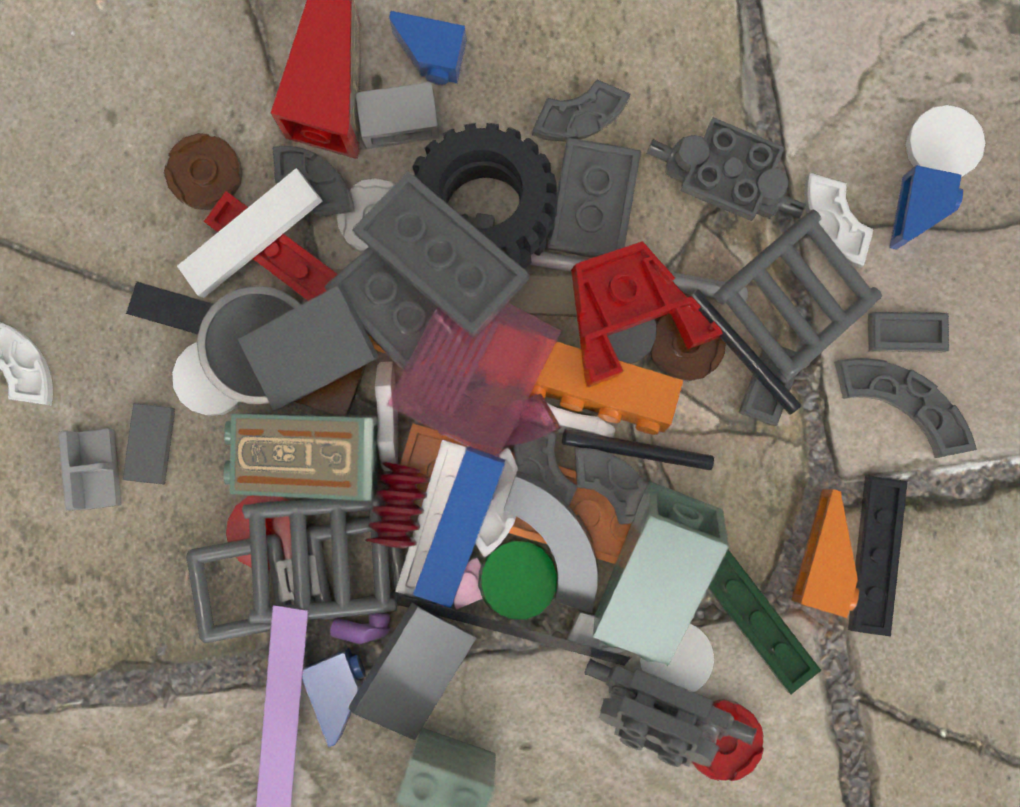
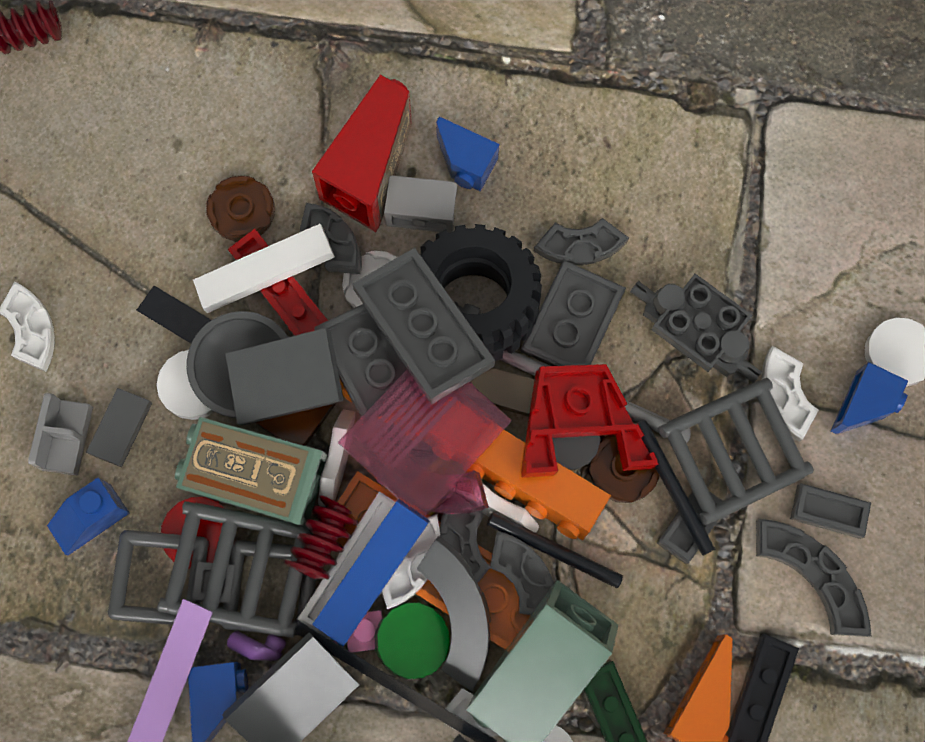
camera: 15 degrees right, 10 degrees down
(145, 544) = (86, 515): none -> blue slope

